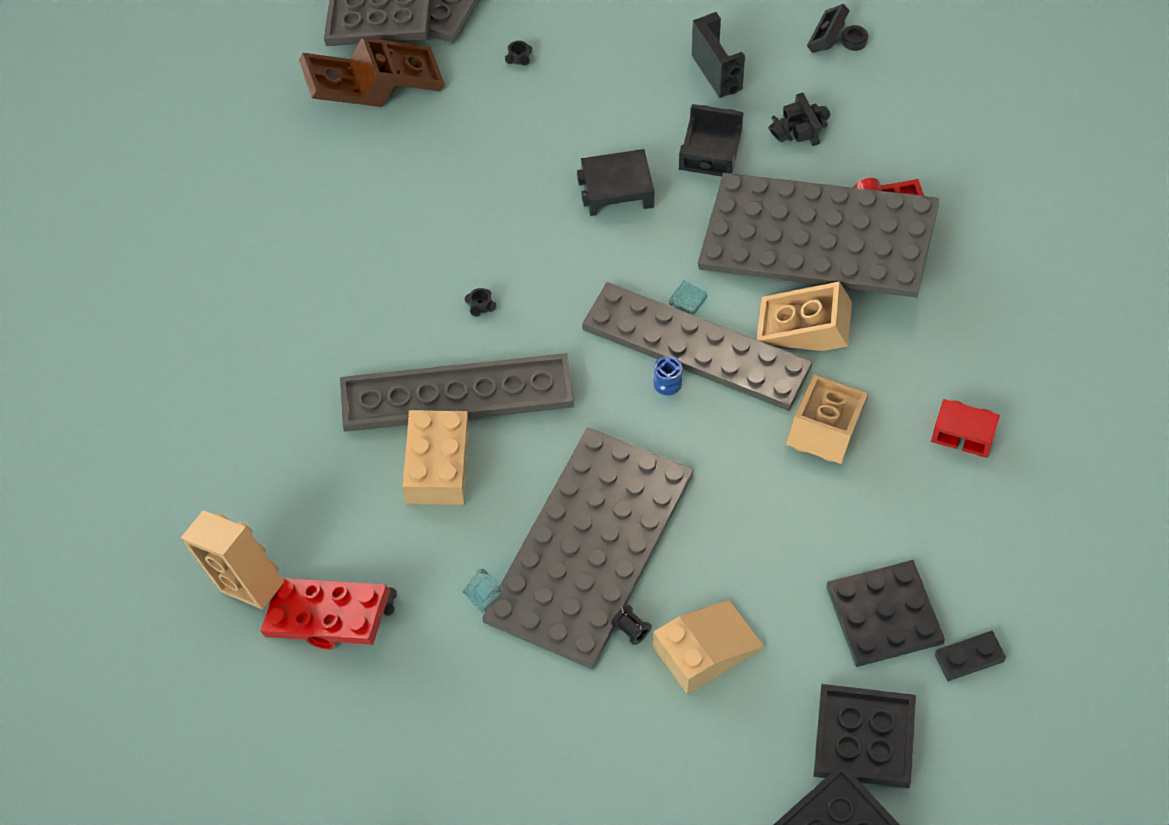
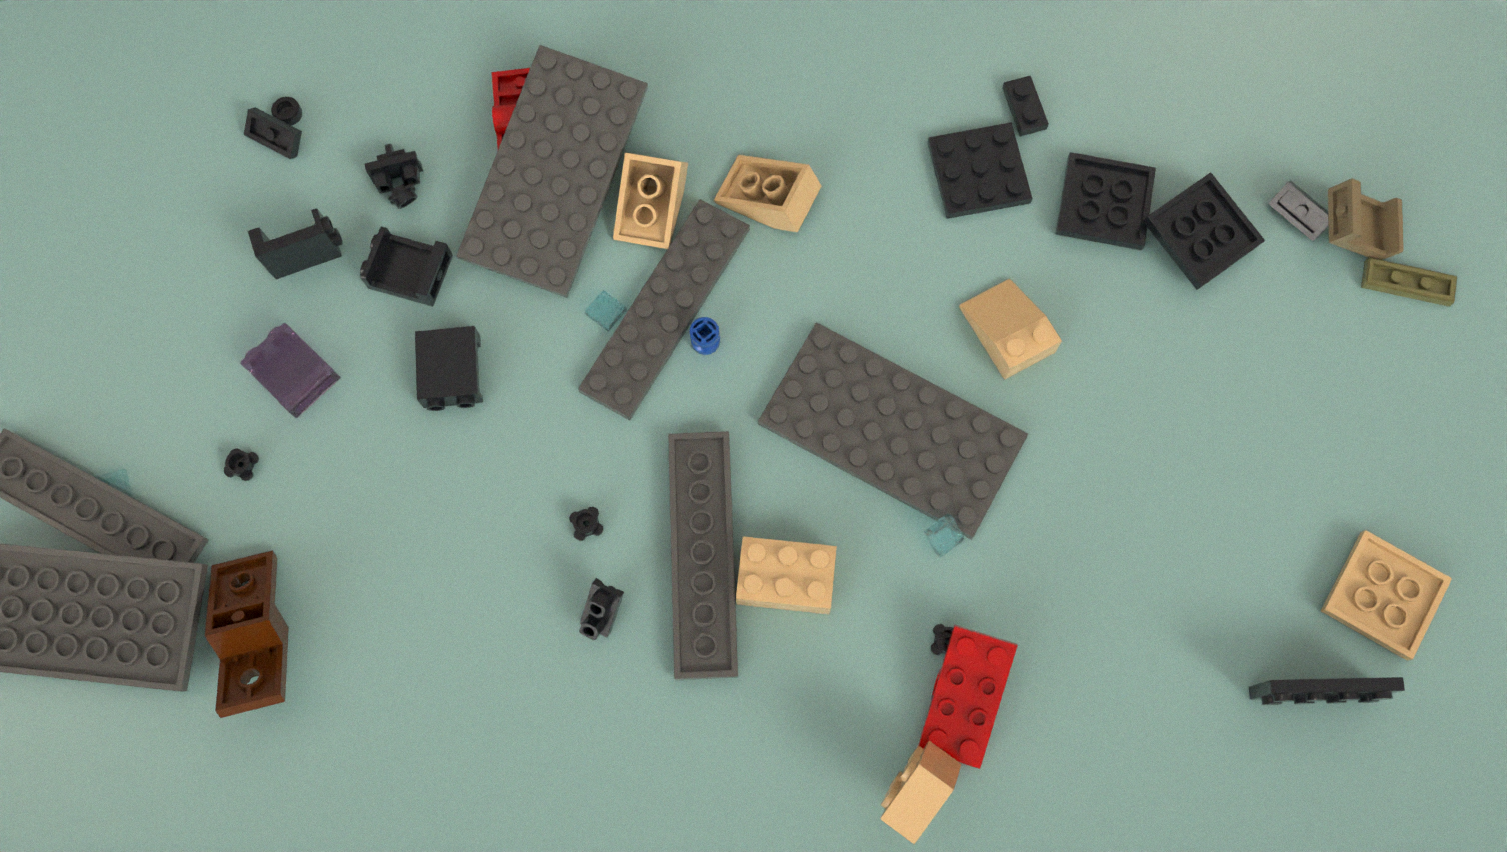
camera: 85 degrees left, 15 degrees up
(399, 314) = (600, 610): none -> black hips
(605, 74) = (290, 370): none -> clear purple panel
(631, 625) = (988, 393): black bush -> none
(965, 422) = (791, 67): red piece -> none

